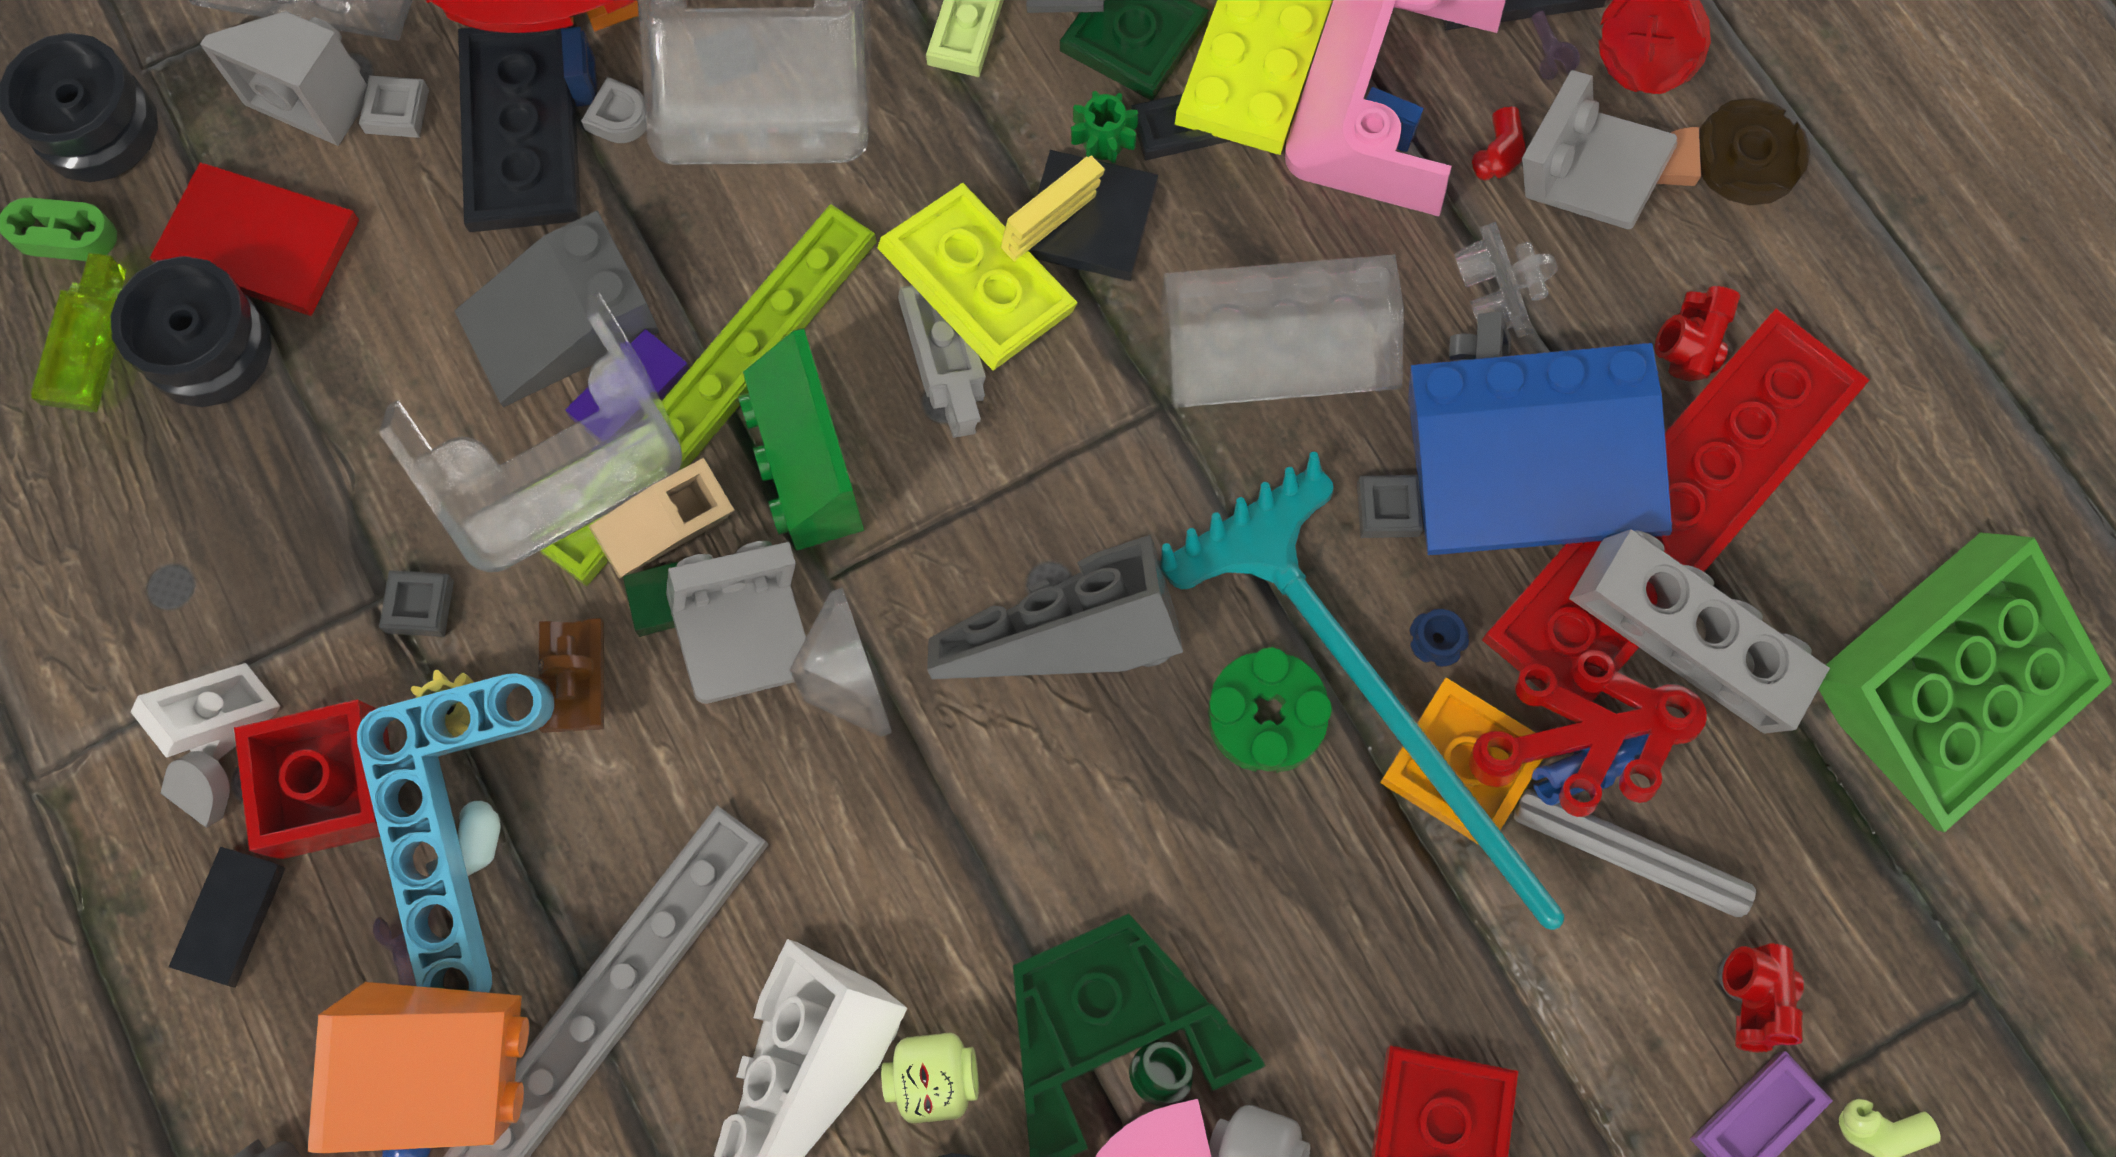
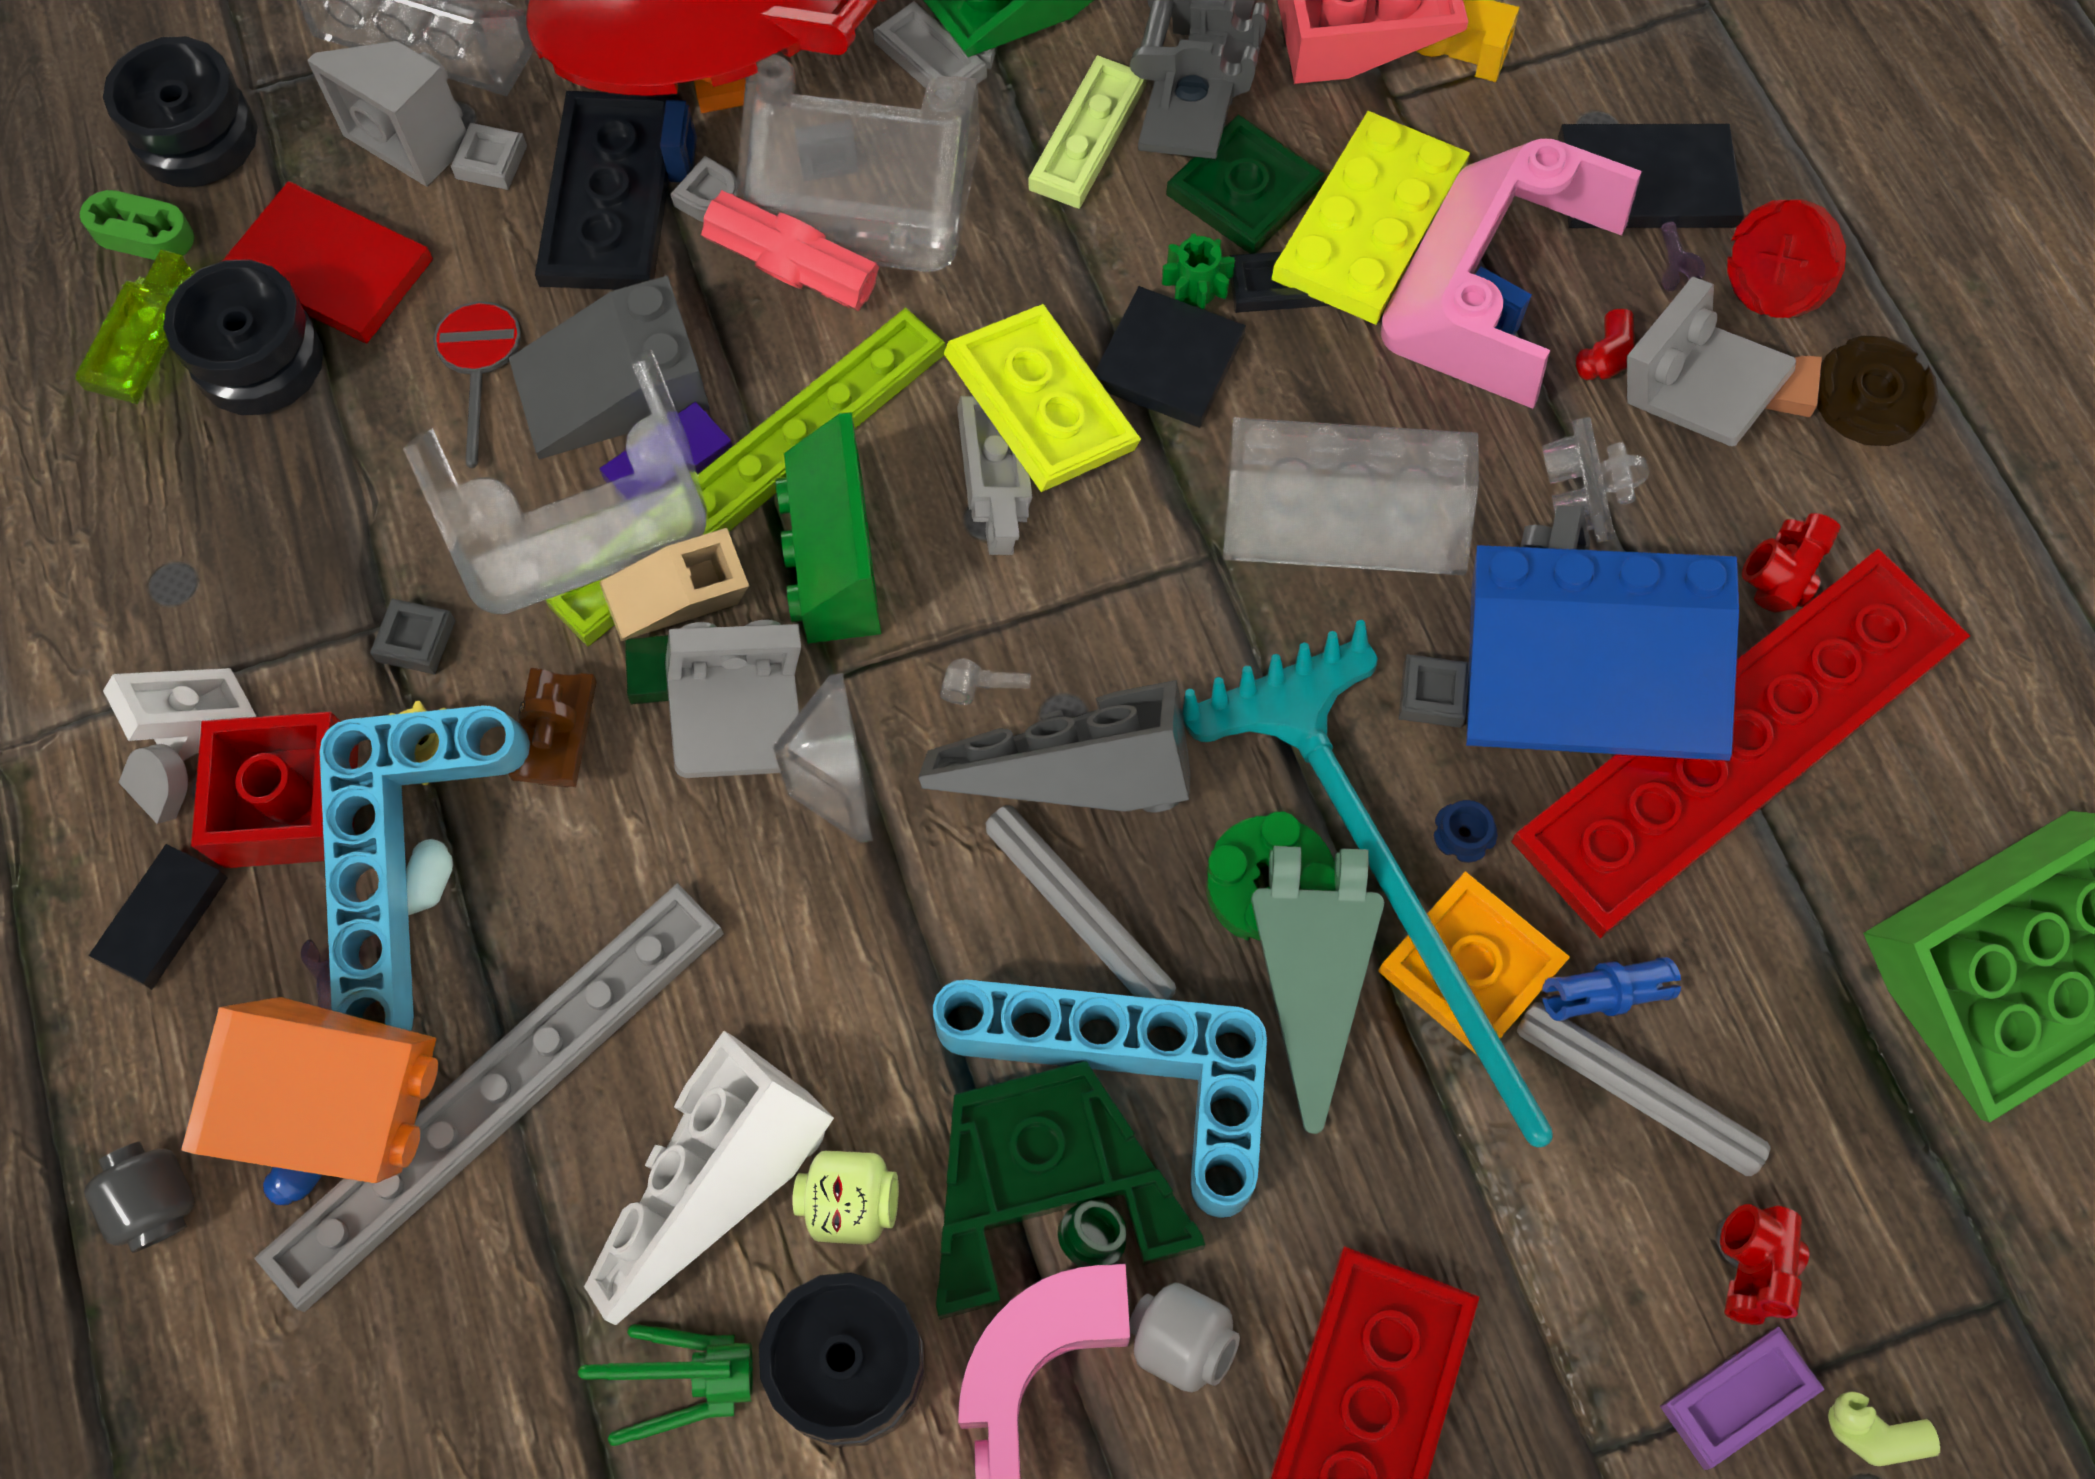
camera: 10 degrees right, 5 degrees down
(418, 298) = (474, 342): none -> piece
(709, 163) = (790, 250): none -> coral piece
(951, 561) = (965, 676): none -> clear hand
(1051, 207) = (1128, 338): light yellow tile -> none
(1097, 767) = (1078, 905): none -> light grey axle
(1170, 896) = (1131, 1053): none -> medium azure beam
(1324, 788) = (1316, 966): none -> sand green flag
(1594, 729) = (1617, 947): red plant -> none
(1616, 594) = (1760, 903): light grey brick -> none

